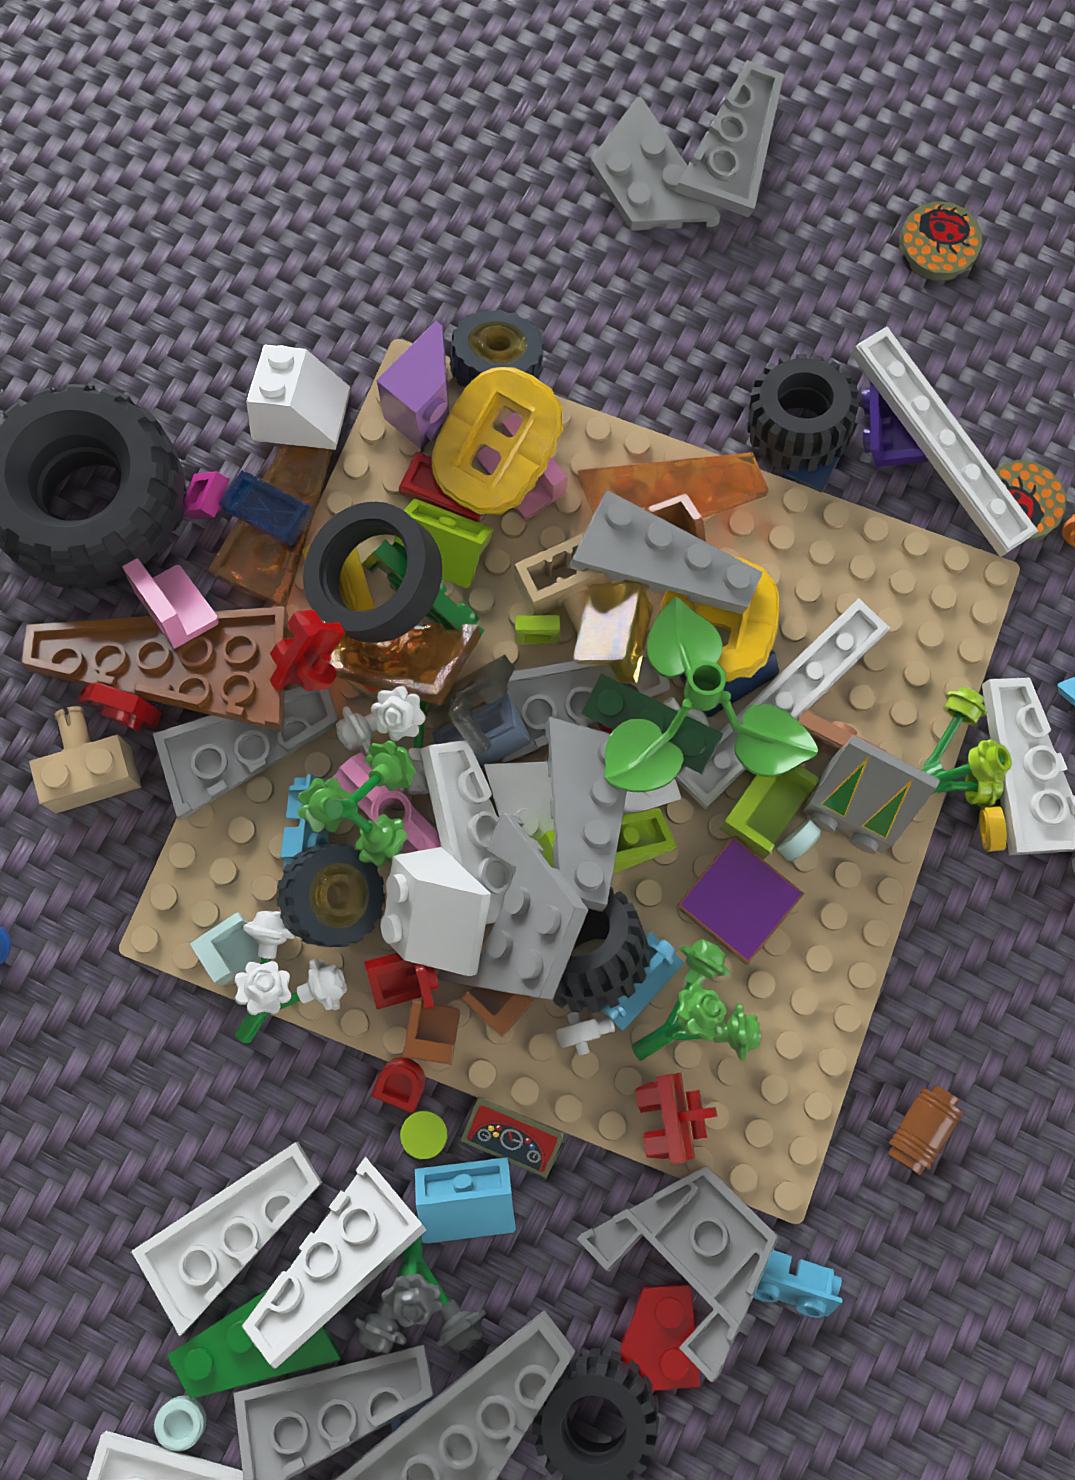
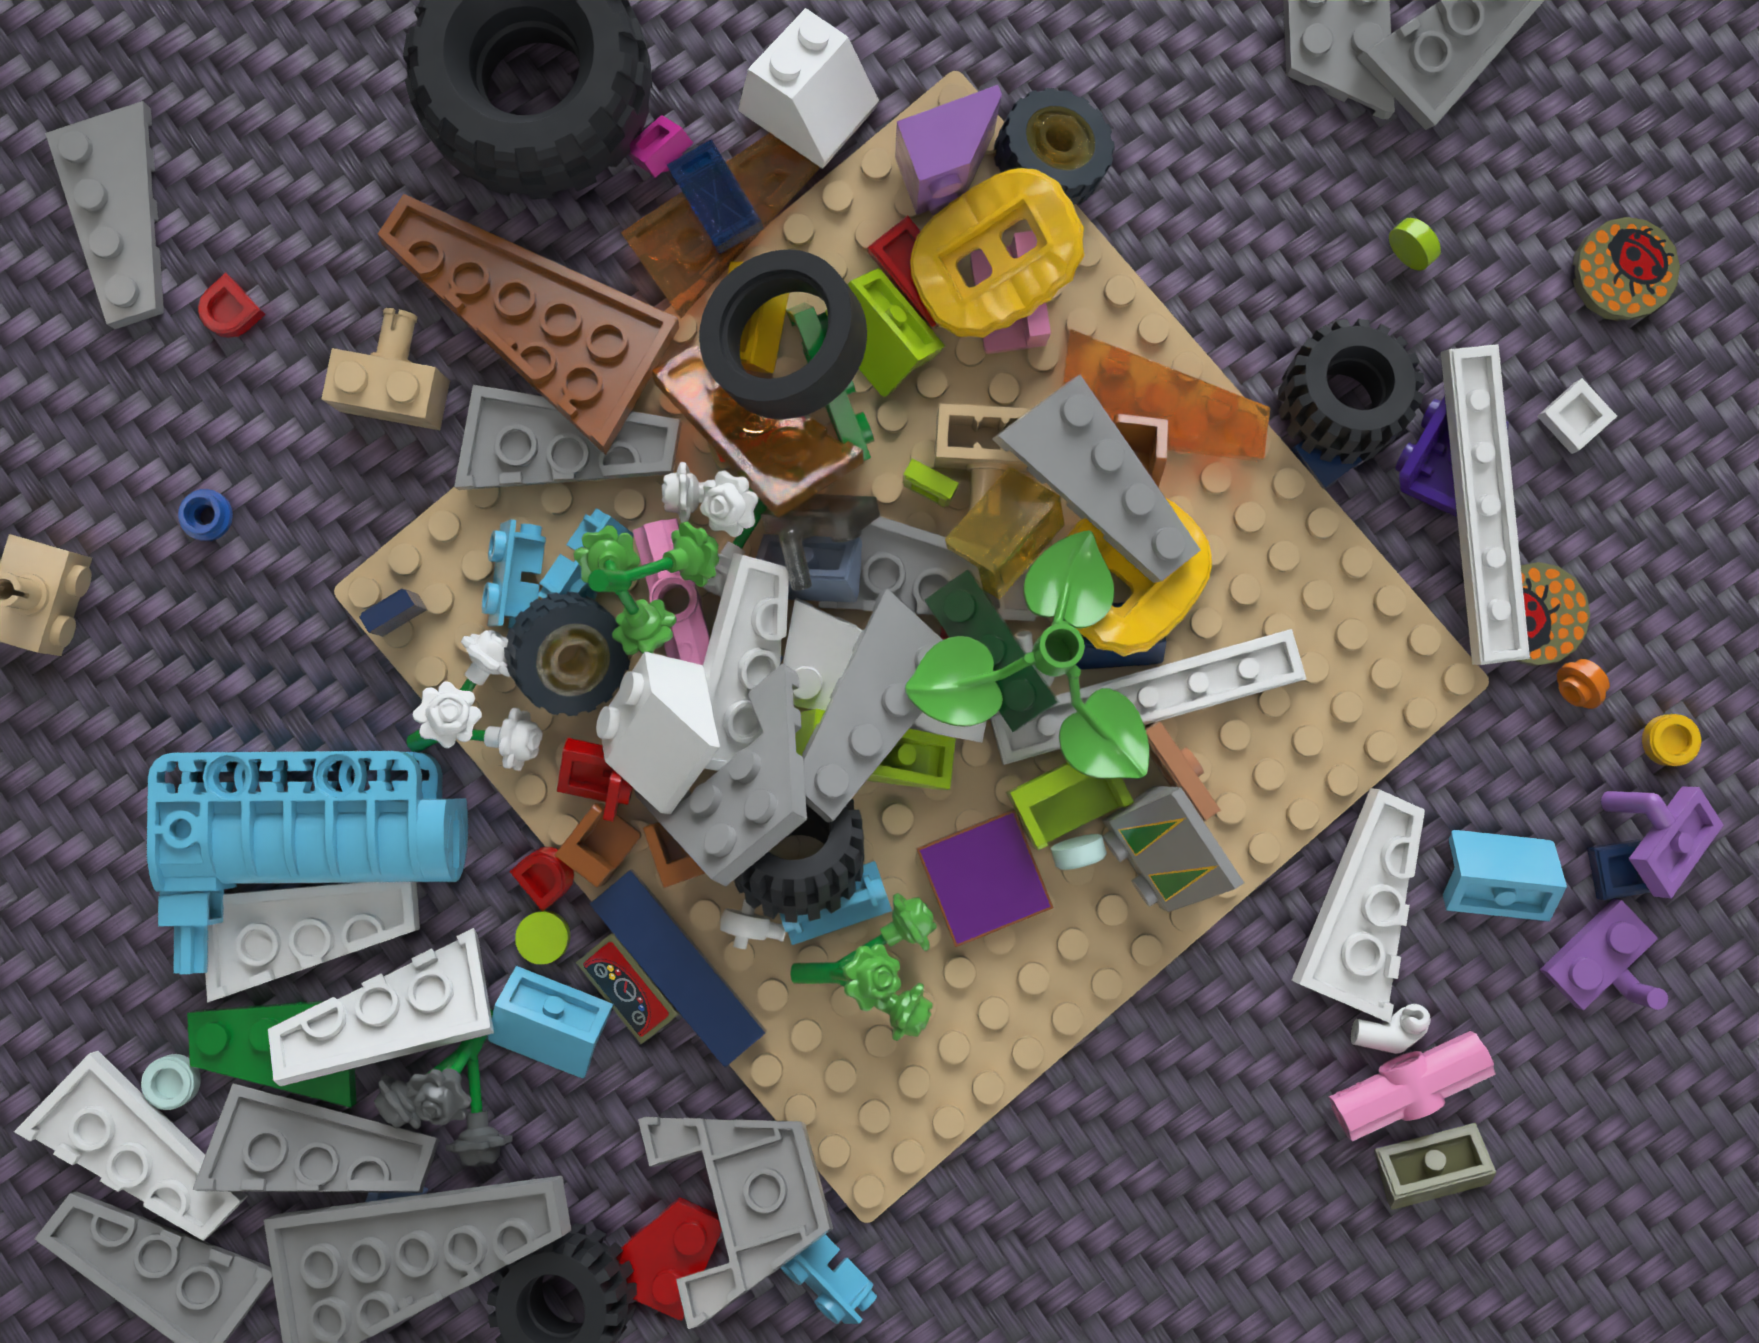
camera: 25 degrees right, 10 degrees up
(122, 707) = (453, 337): red wing -> none
(172, 602) = (563, 251): bright pink panel -> none
(176, 938) = (392, 612): none -> dark blue tile
(178, 1156) = (219, 838): none -> medium azure piece
(226, 949) = (435, 651): light aqua panel -> none
(247, 845) = (512, 554): none -> medium azure hinge
(308, 655) = (669, 387): red hips -> none
(544, 1097) = (678, 968): none -> dark blue tile
(676, 1139) = (802, 1060): red hips -> none
(787, 294) = (1415, 243): none -> lime tile
(925, 1129) = (1041, 1203): dark orange head -> none
(968, 352) = (1577, 416): none -> white plate
(986, 762) = (1314, 882): lime plant -> none
(992, 828) = (1289, 945): yellow tile -> none

